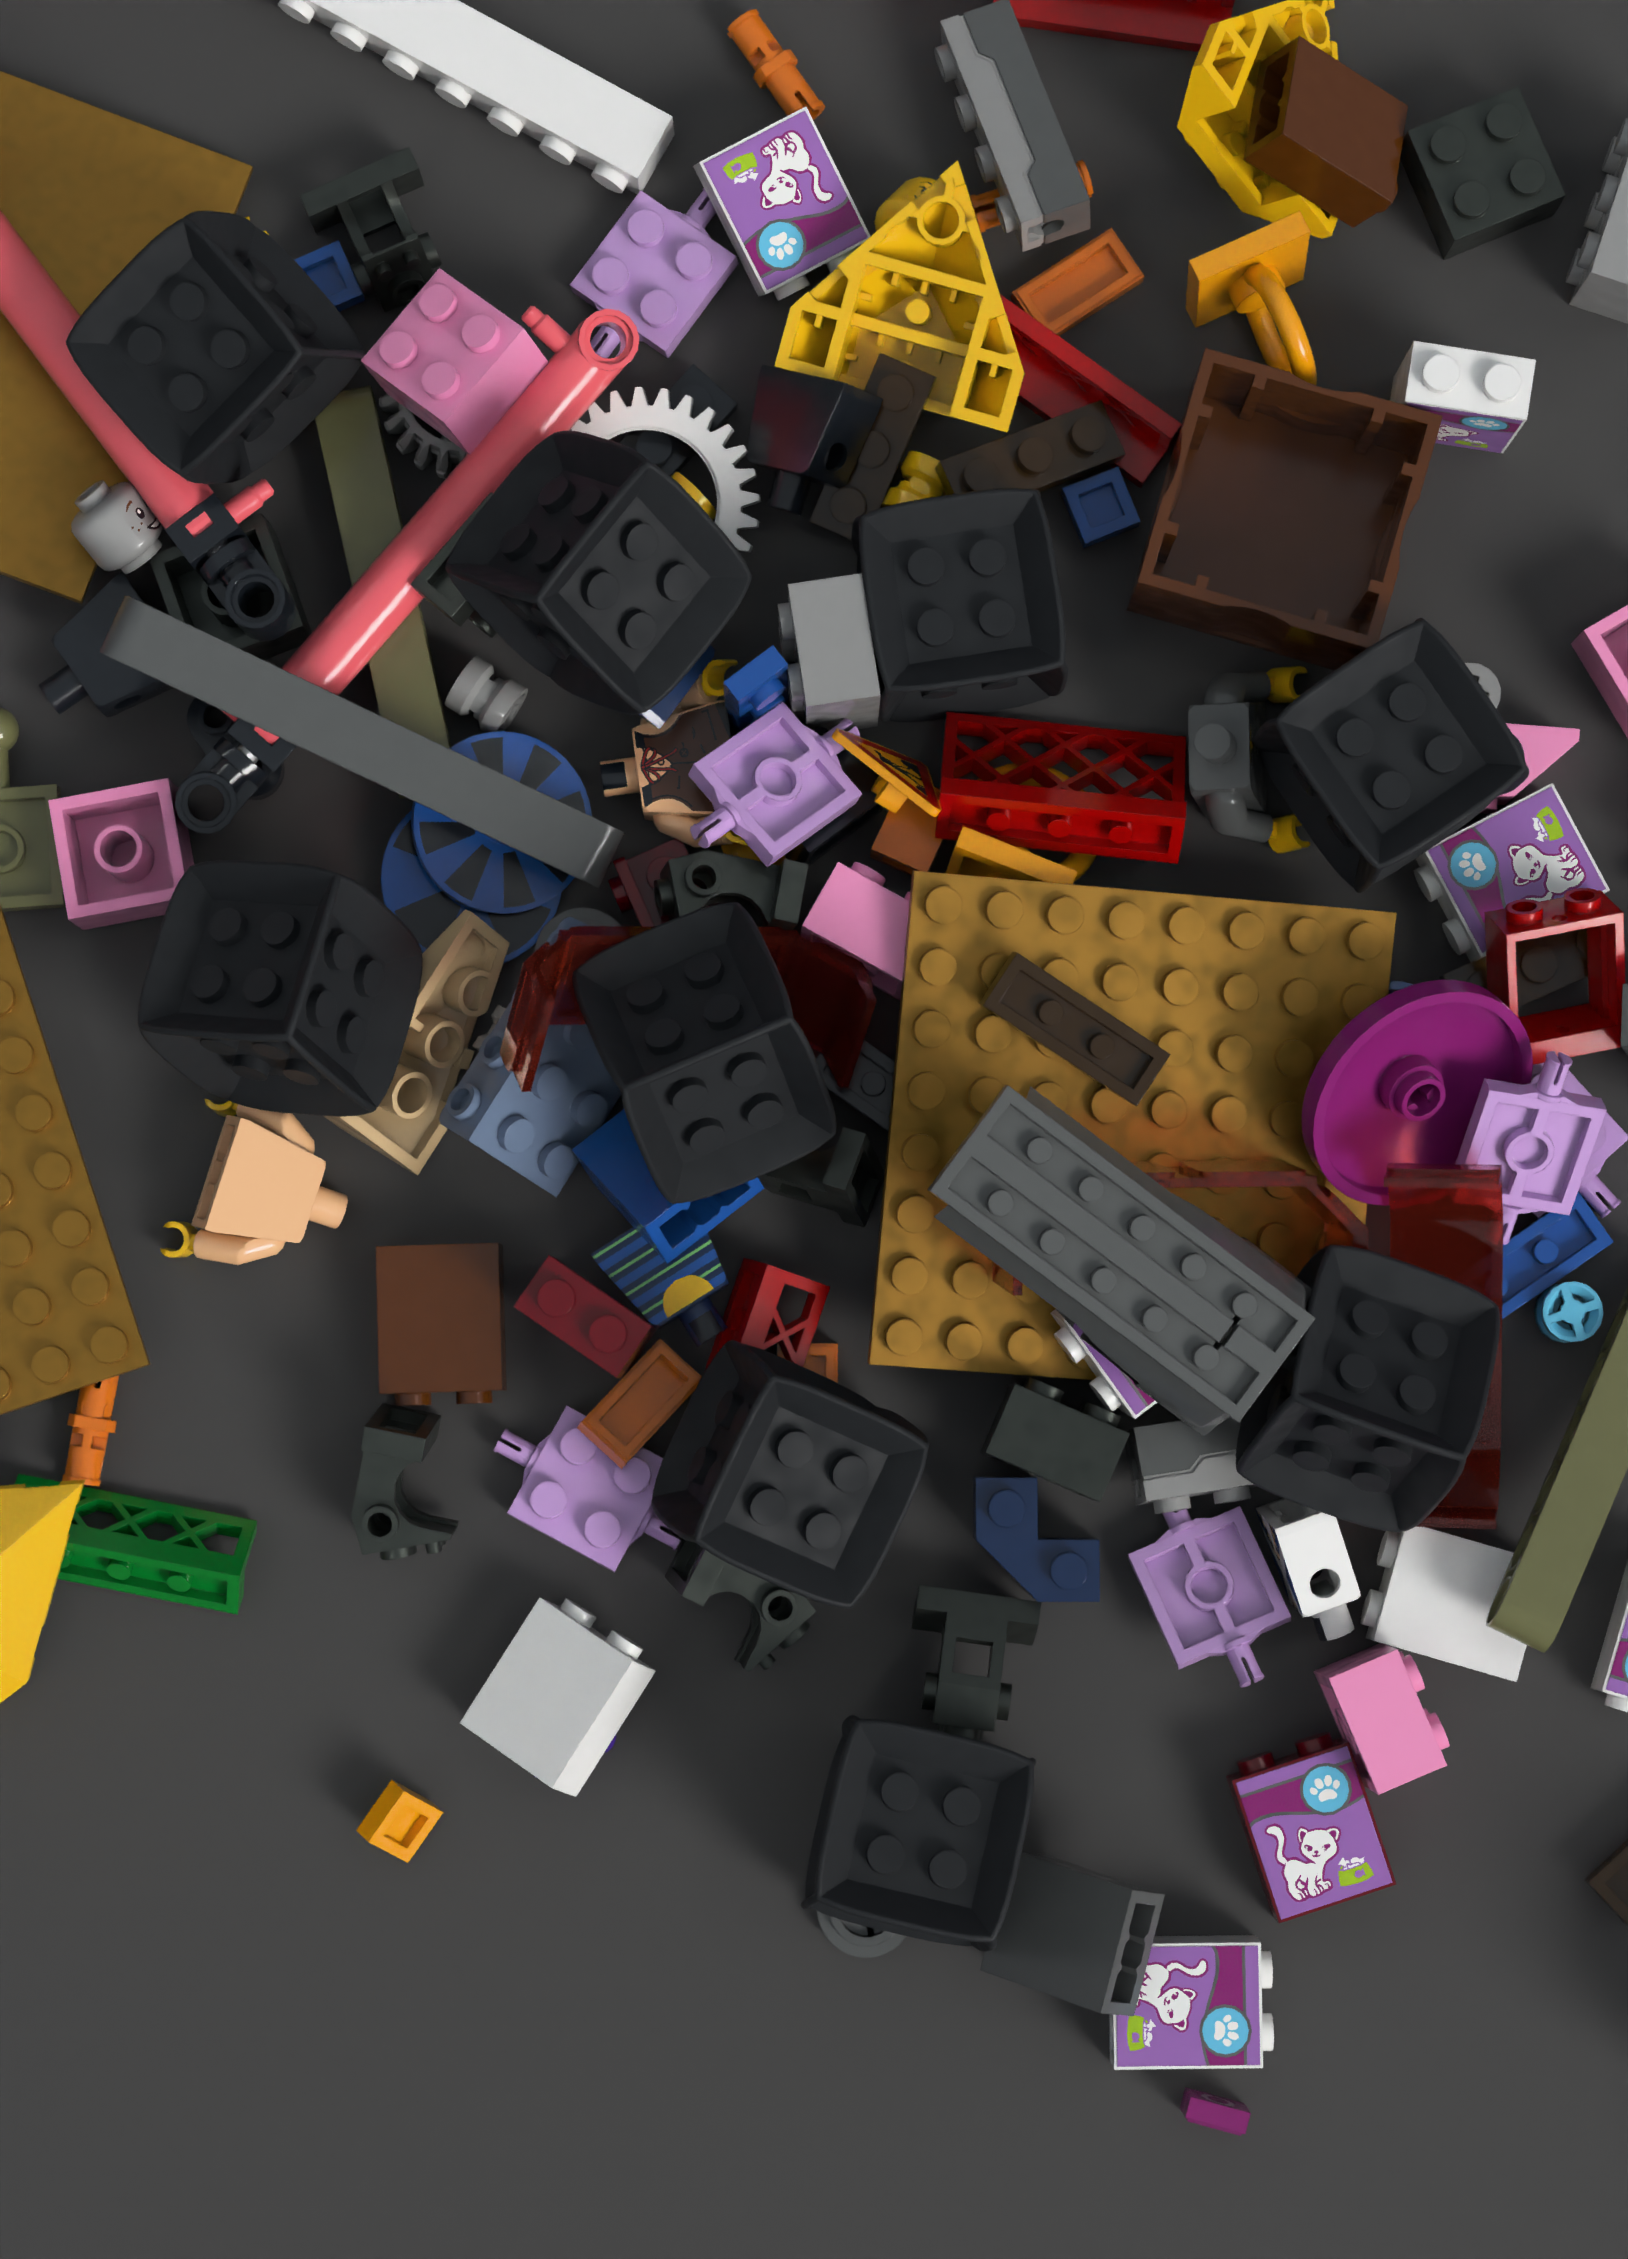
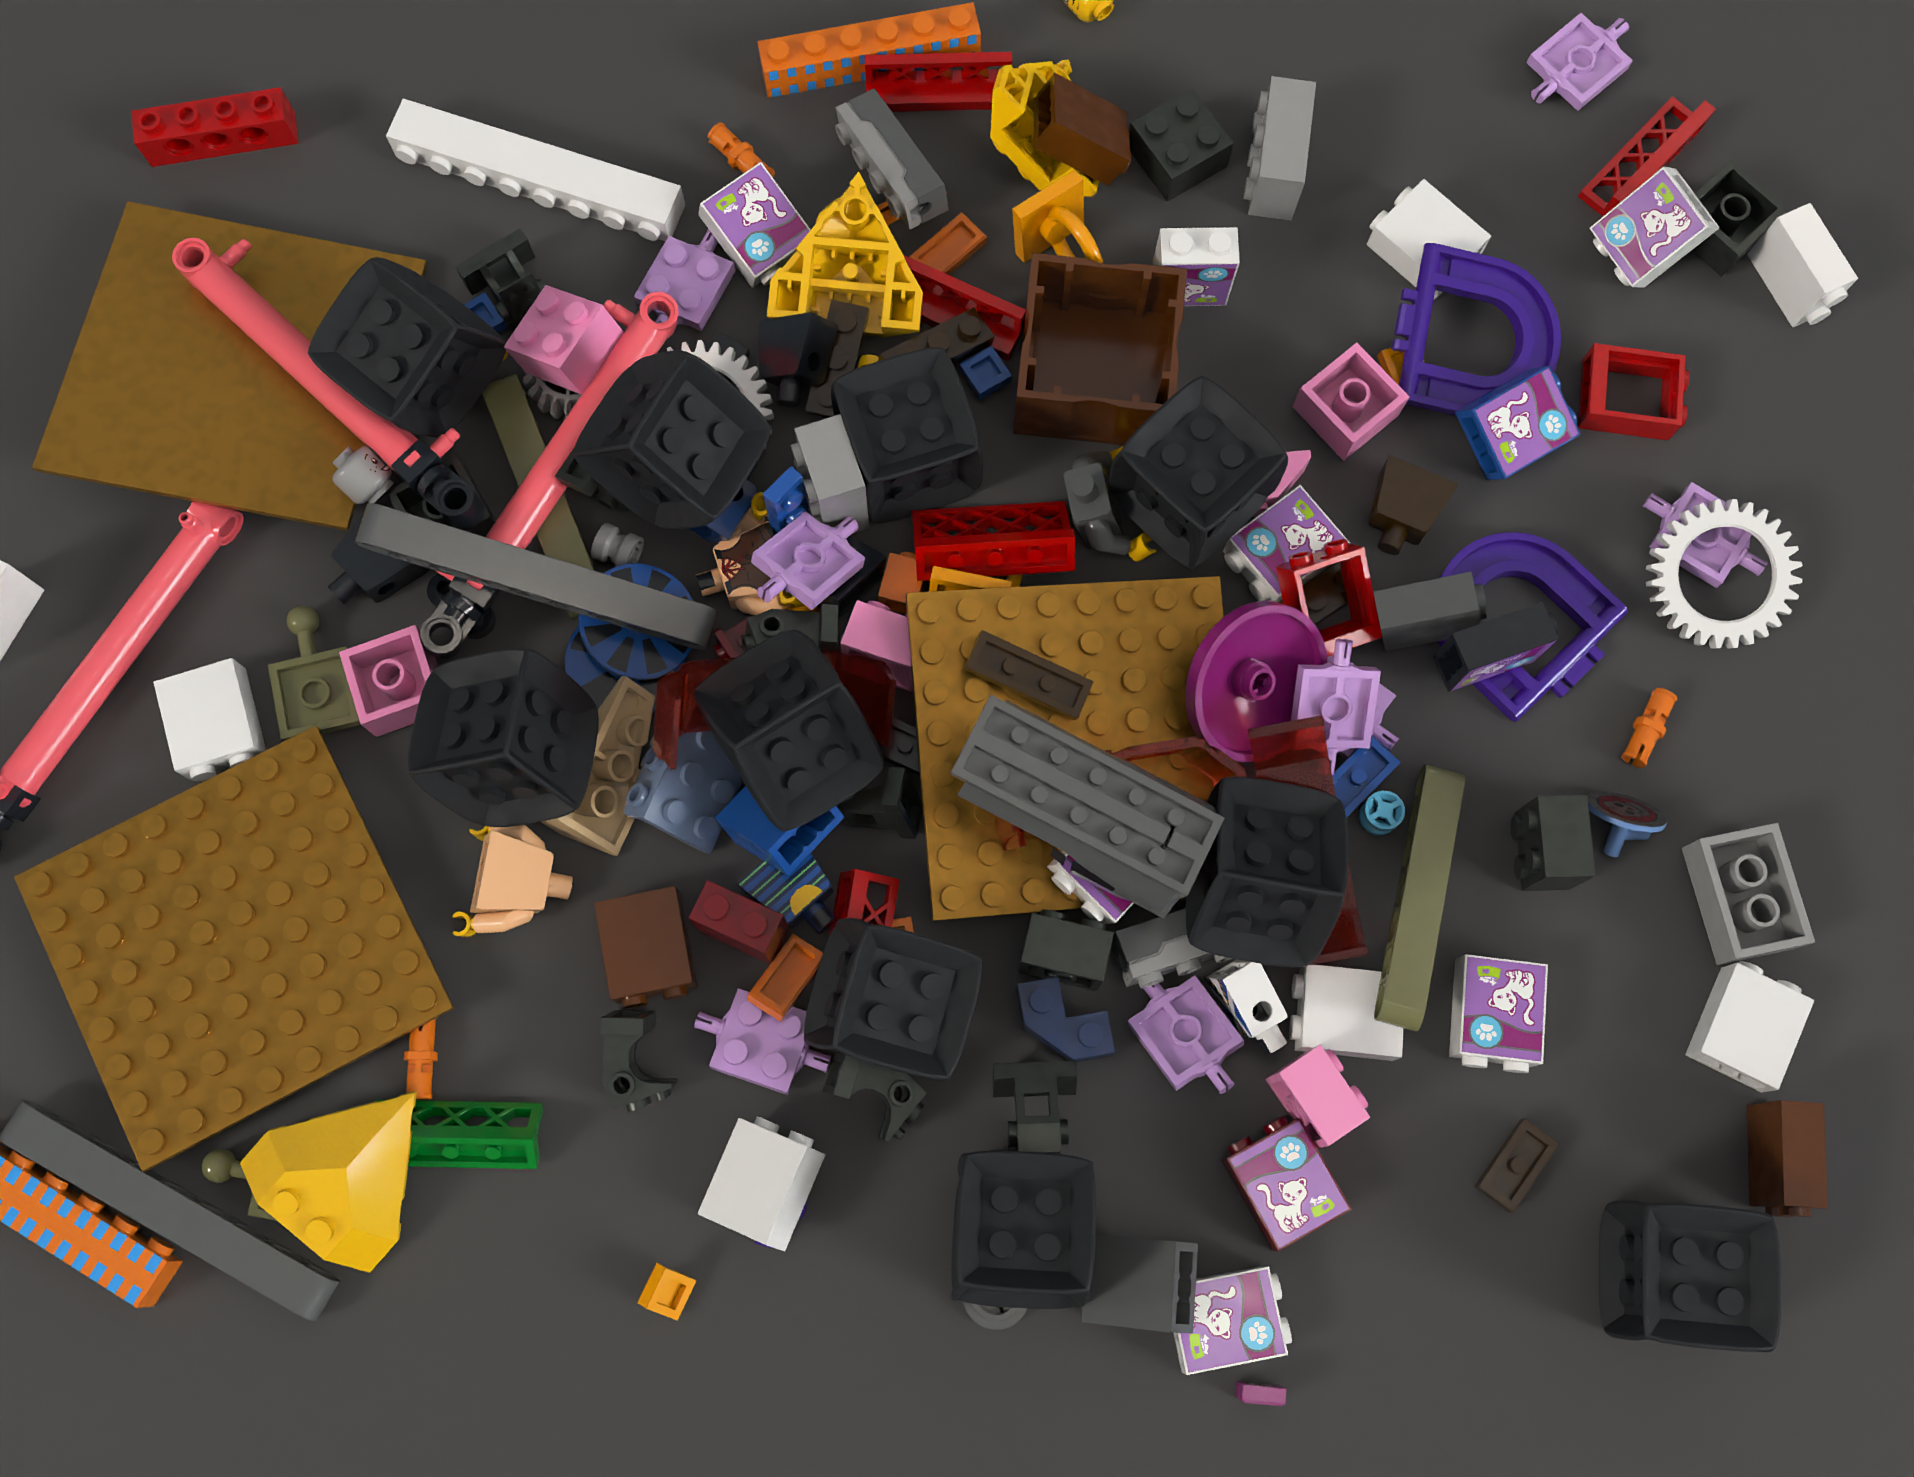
camera: 10 degrees left, 10 degrees down
(898, 774) = (886, 546): light orange piece -> none

